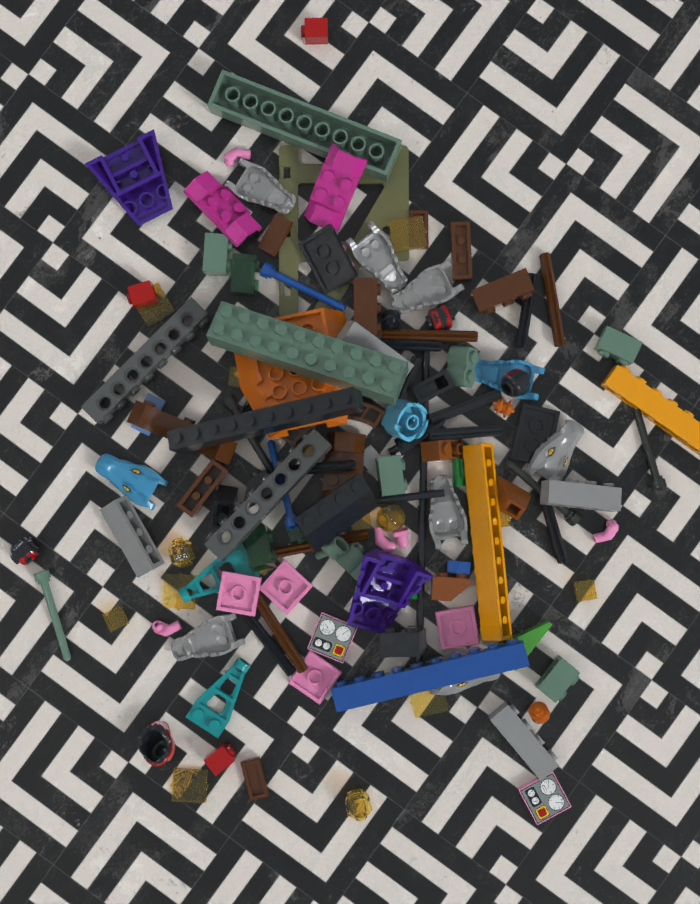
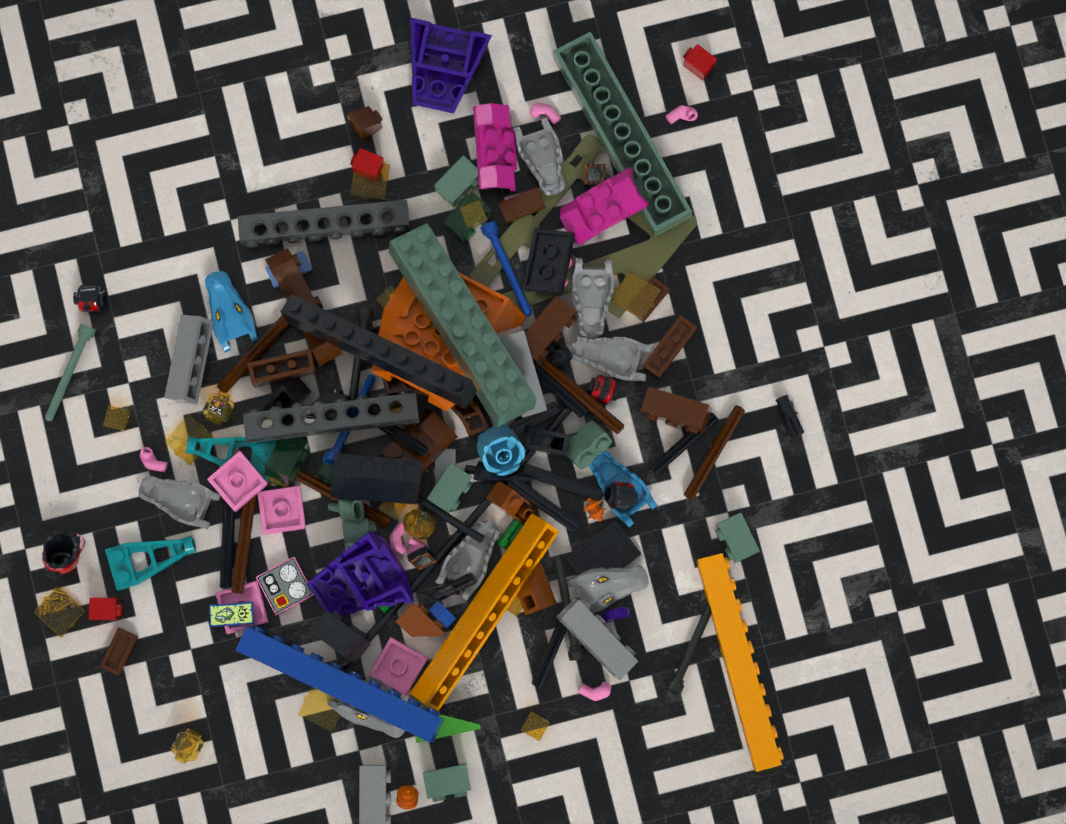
camera: 40 degrees right, 5 degrees down
(115, 266) = (365, 122): none -> reddish brown slope
(174, 495) = (253, 355): none -> reddish brown axle
(247, 268) = (473, 214): none -> clear yellow tile
(308, 172) = (594, 174): none -> tile
(312, 688) = (231, 614): none -> tile
(334, 77) = (682, 112): none -> bright pink arm
(412, 539) = (422, 558): none -> tile
(451, 541) = (454, 587): none -> black axle
(577, 468) = (615, 614): none -> dark purple tile
(583, 231) = (790, 416): none -> black axle

